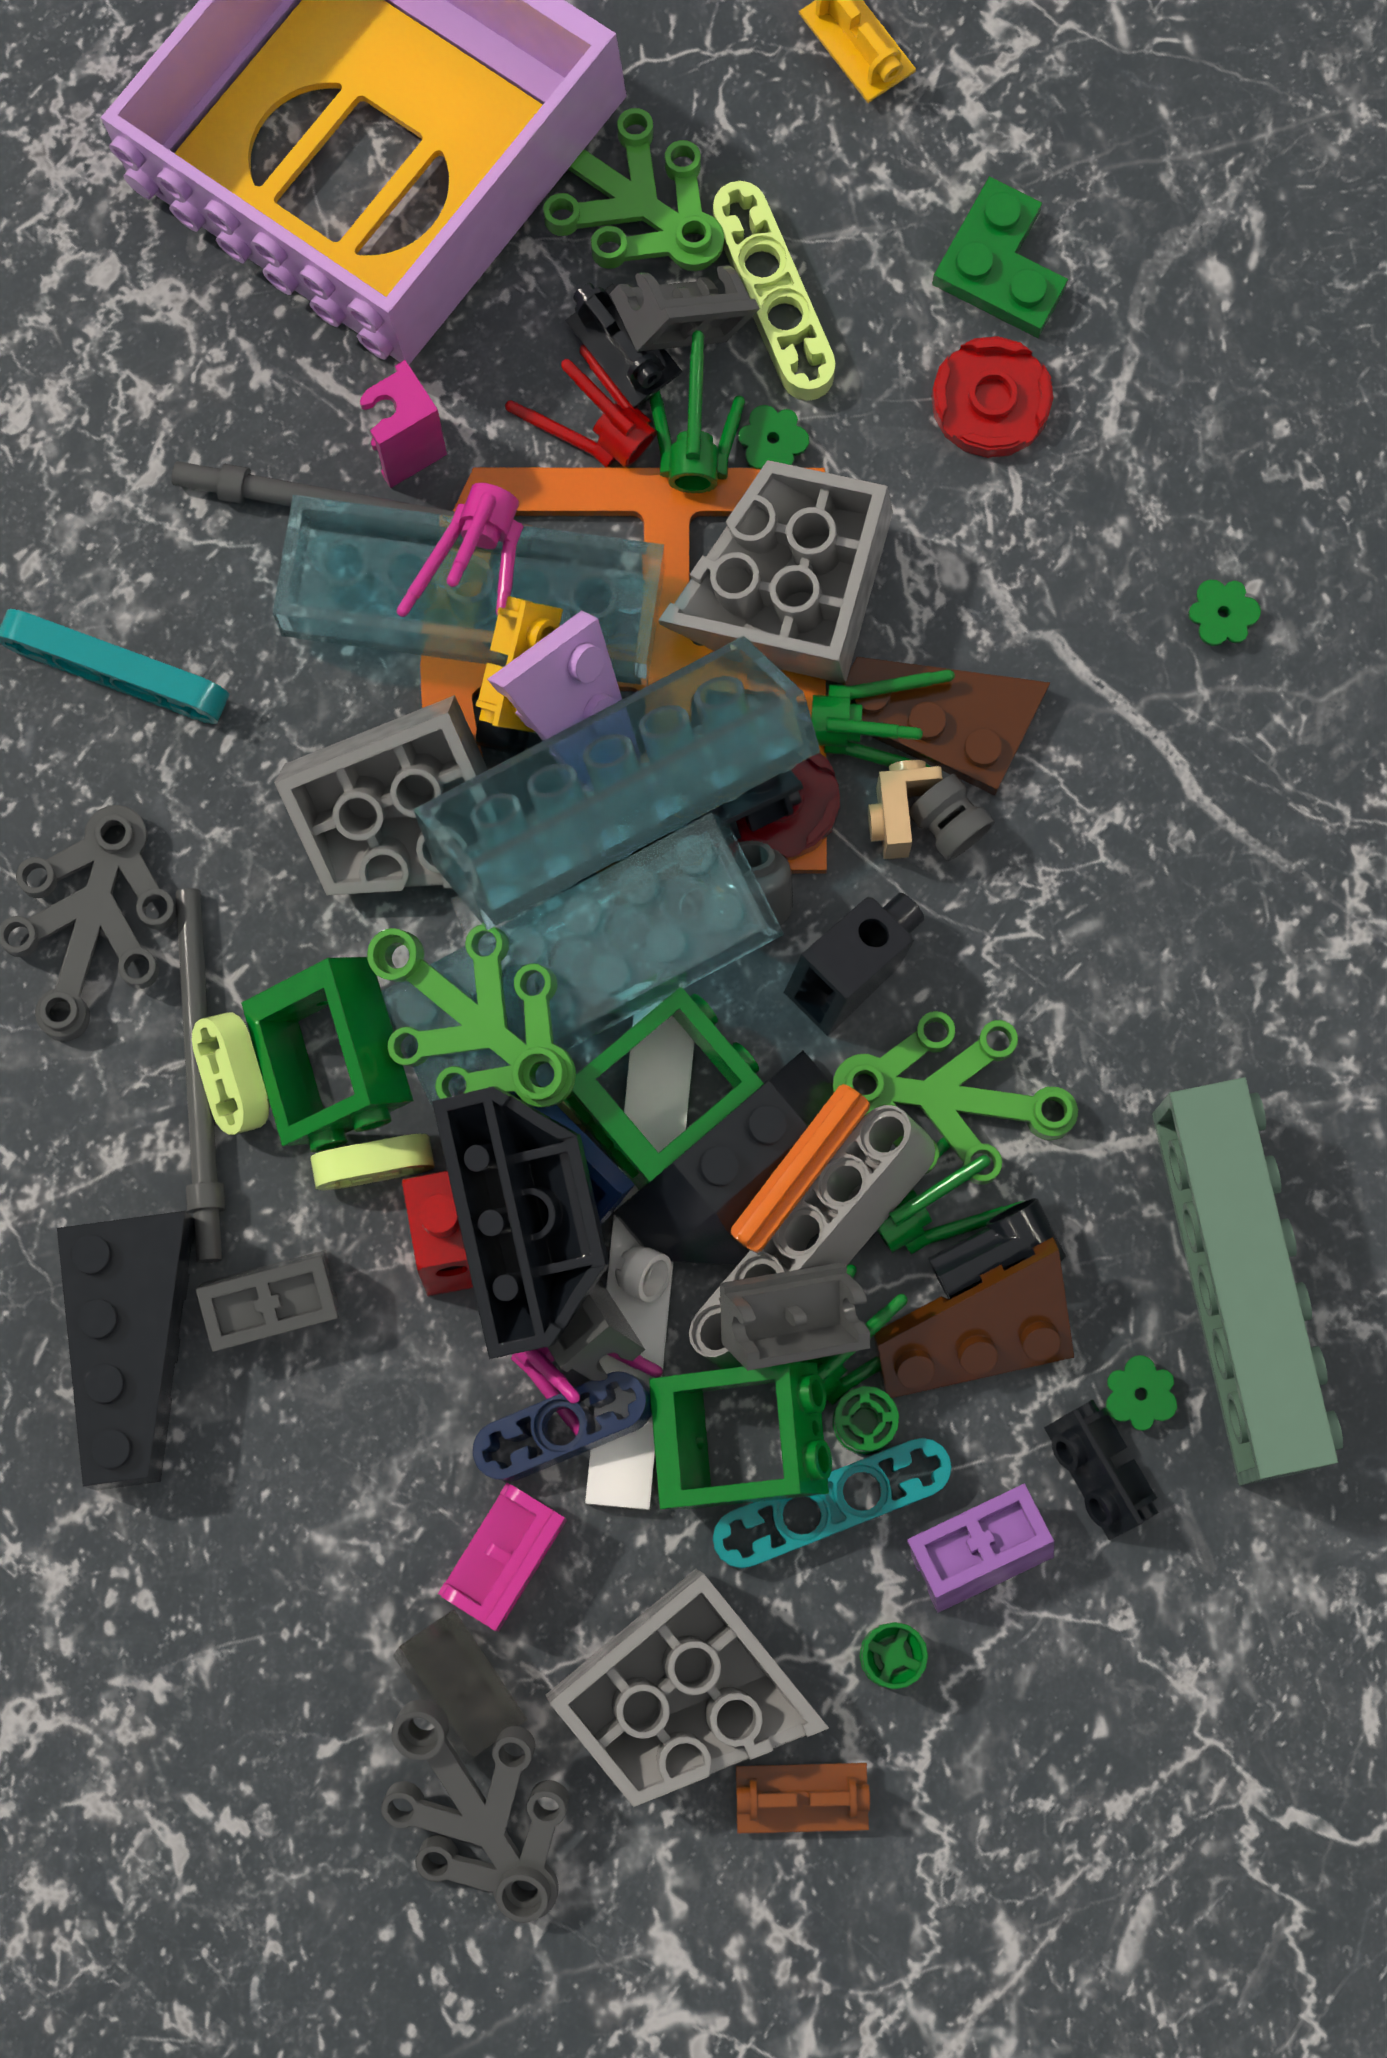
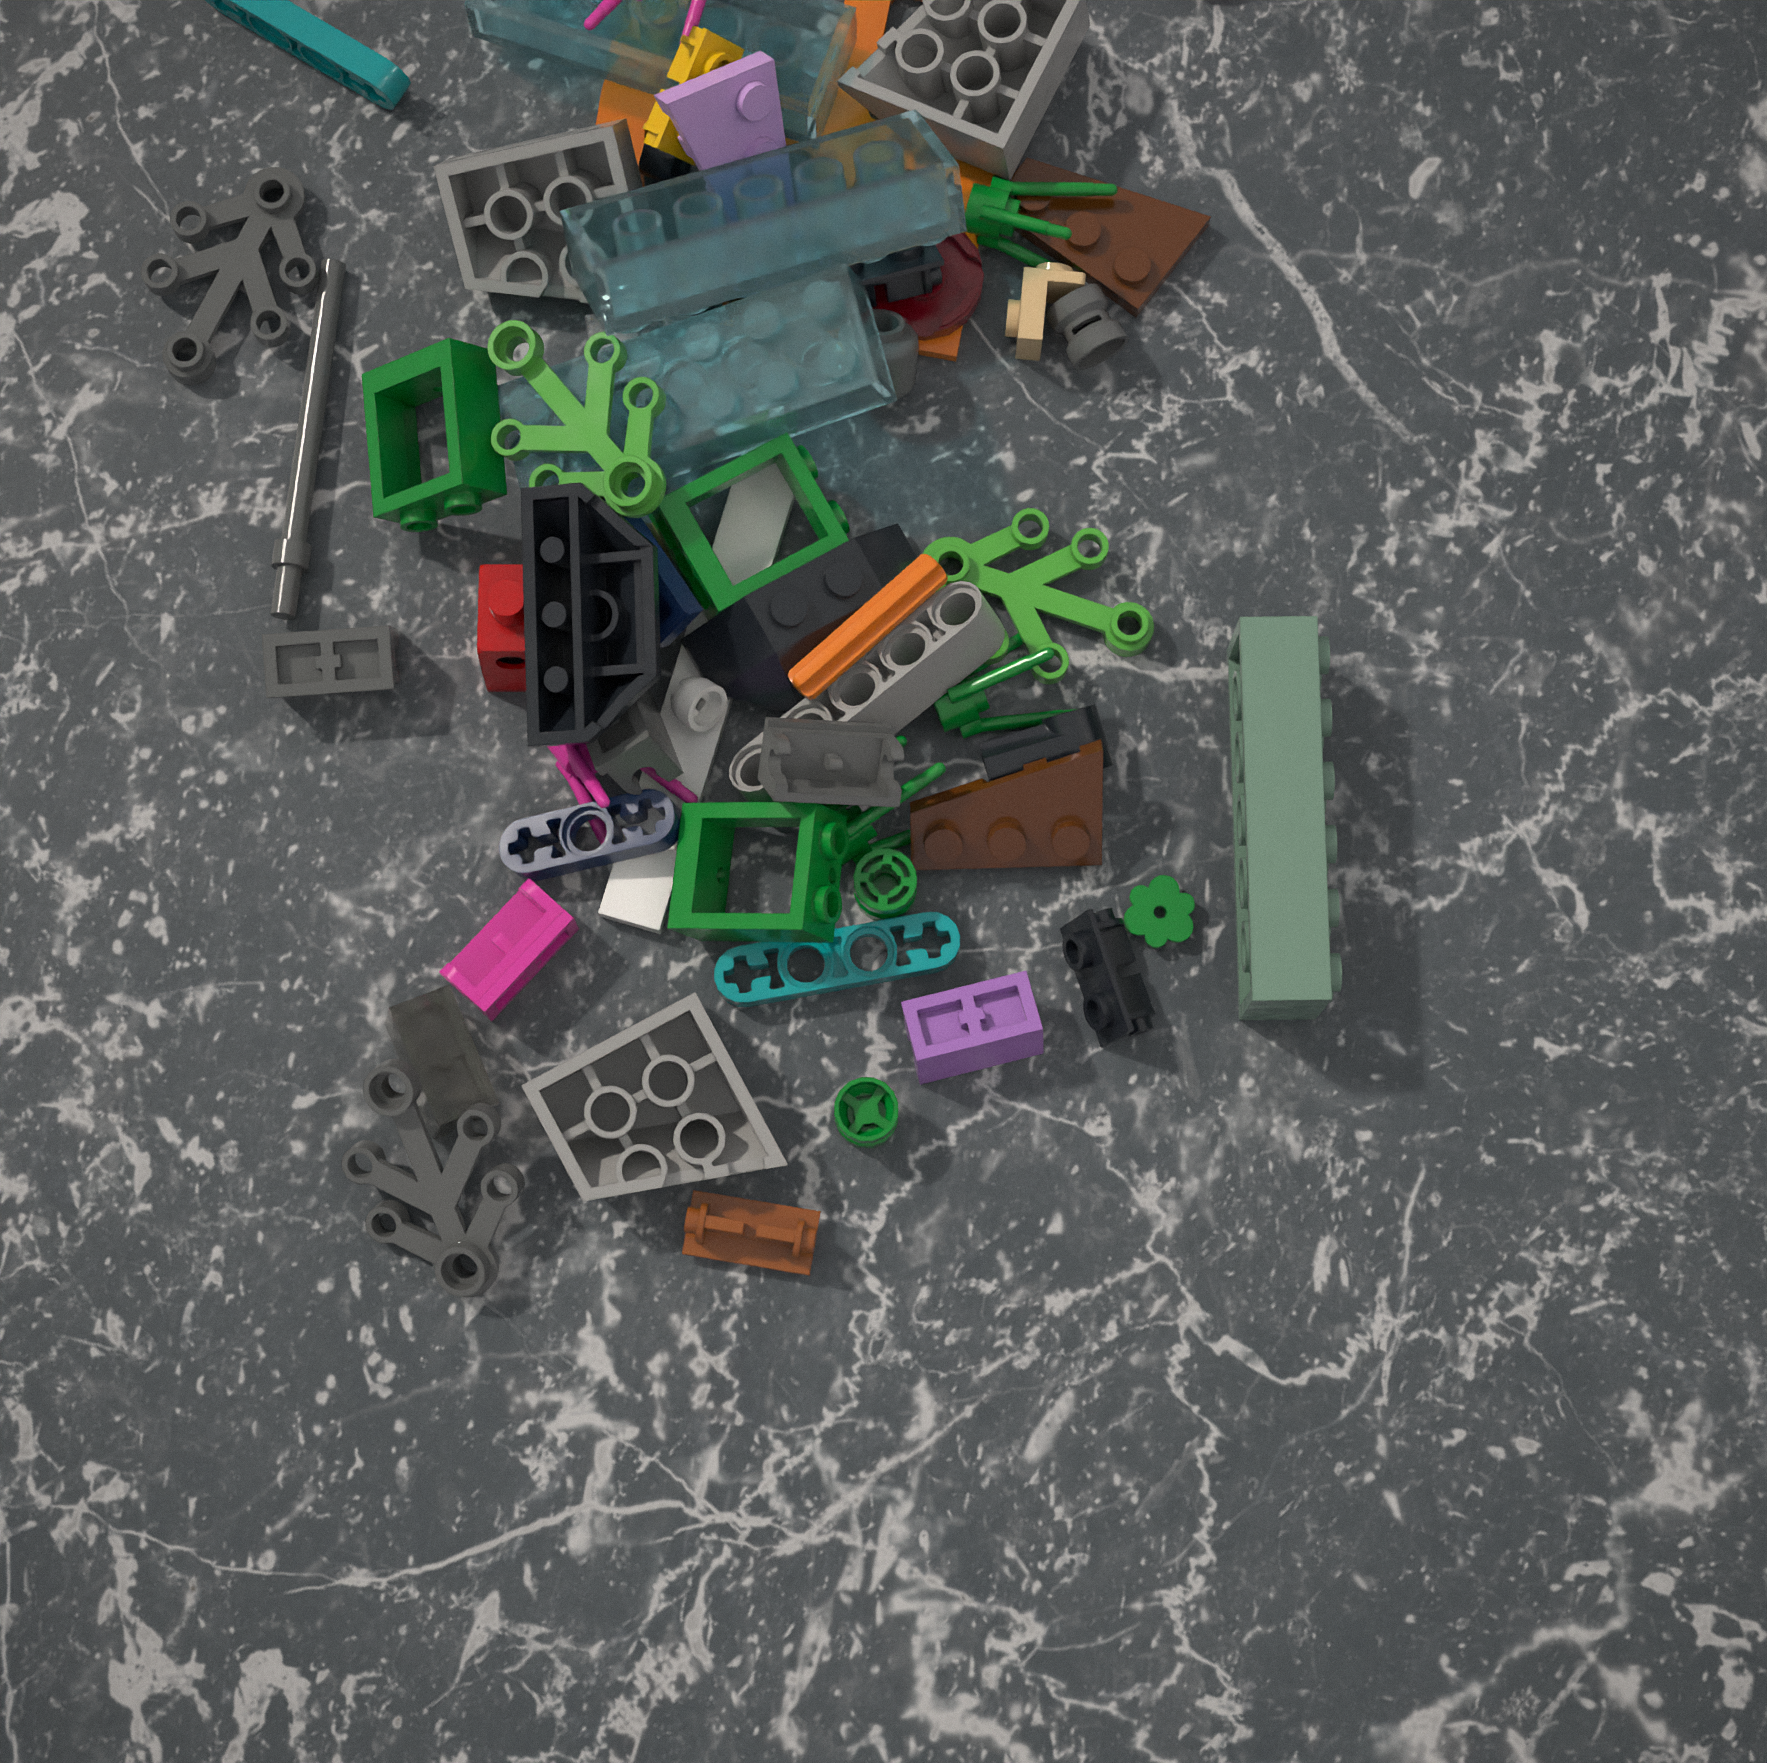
camera: 10 degrees right, 0 degrees up
(123, 1329) = (186, 662): black wedge -> none
(230, 1073) = (338, 440): yellowish green beam -> none
(372, 1161) = (455, 549): yellowish green beam -> none
(853, 959) = (961, 443): black torso -> none
(1230, 599) = (1405, 170): green plant -> none

